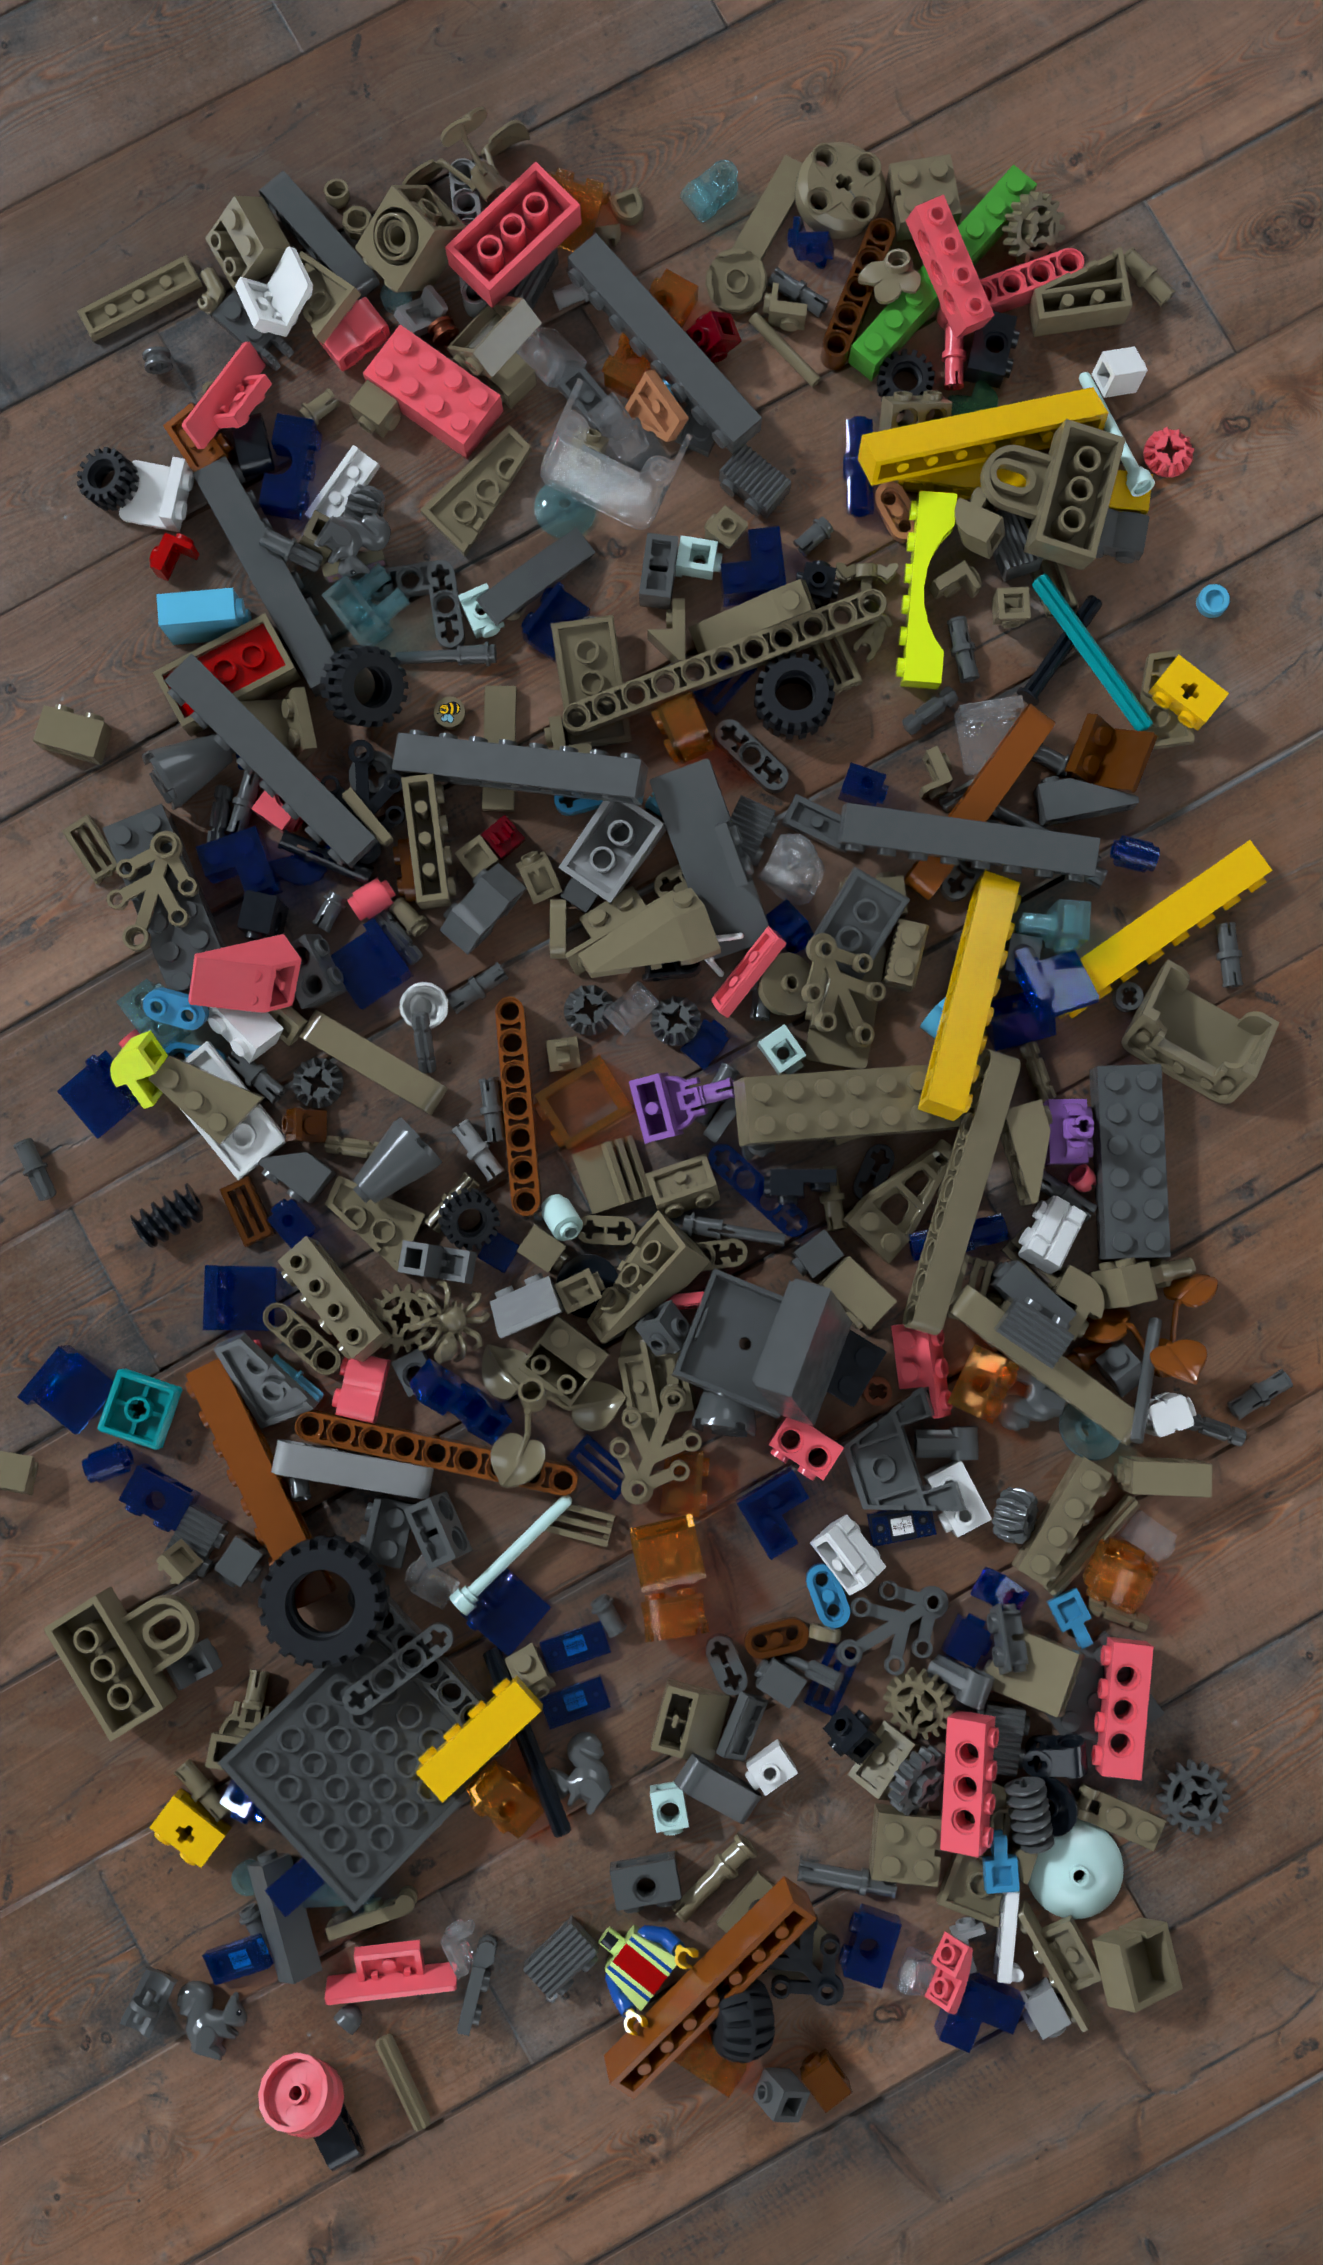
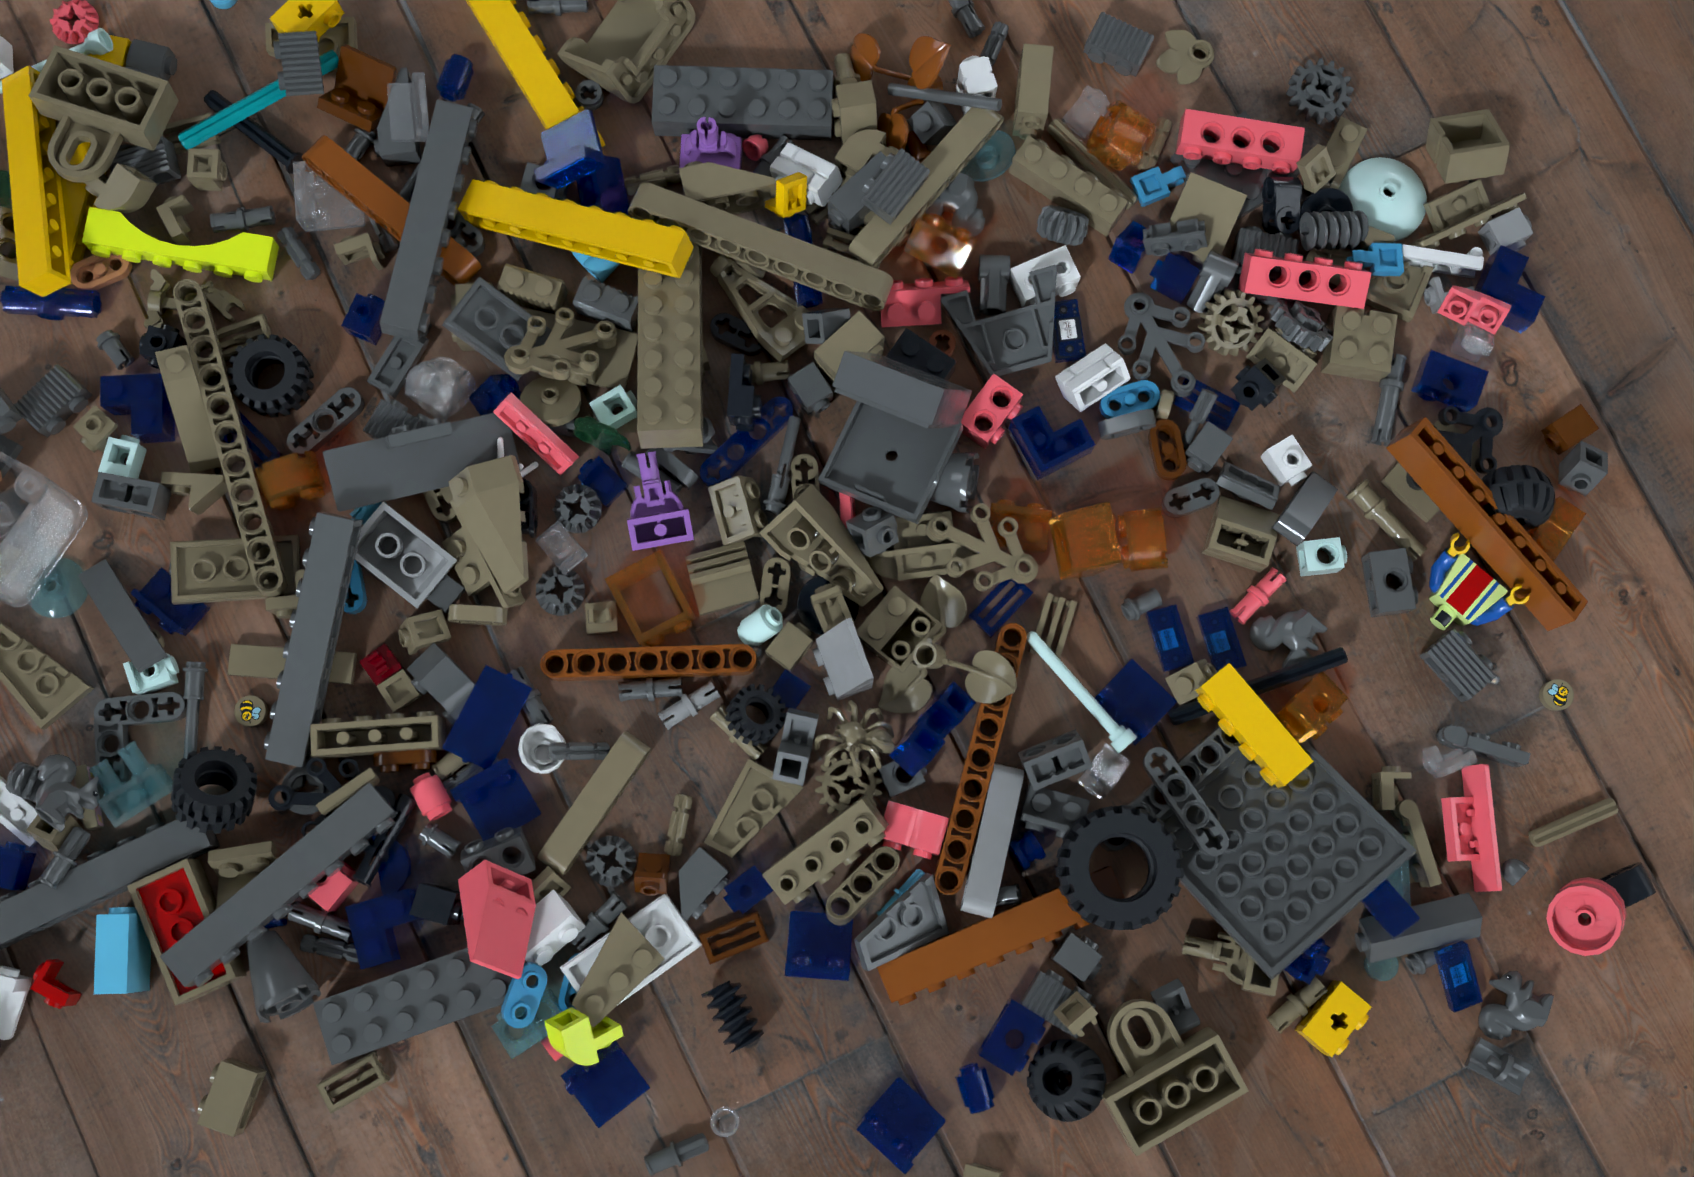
camera: 90 degrees left, 5 degrees down
(59, 1209) = (732, 1128): none -> clear bush
(112, 1537) = (1049, 1086): none -> black wheel
(121, 1418) = (932, 1072): teal brick -> none
(153, 886) = (396, 1011): dark tan plant -> none
(346, 1505) = (1027, 850): none -> clear blue wheel
(395, 1163) = (695, 782): dark grey cone -> none
(424, 1878) = (1384, 792): none -> dark tan bracket
(450, 948) = (487, 717): none -> clear blue piece
(537, 2064) = (1556, 695): none -> dark tan tile
(624, 1739) = (1257, 596): none -> coral pin
(752, 1029) = (599, 434): none -> clear green plate
(799, 1593) = (1127, 424): none -> dark grey beam
(886, 1265) = (823, 323): none -> dark grey brick
(893, 1034) = (606, 304): none -> dark grey brick
(1022, 1218) = (790, 195): none -> yellow bracket
(1062, 928) = (516, 143): clear light blue brick -> none
(1089, 809) = (408, 110): none -> clear panel
(1095, 1793) = (1315, 169): none -> dark tan bracket
(1129, 692) = (300, 63): none -> dark grey brick
(1223, 1639) = (1181, 57): none -> dark tan plate
(1229, 1569) = (1118, 45): none -> dark grey brick

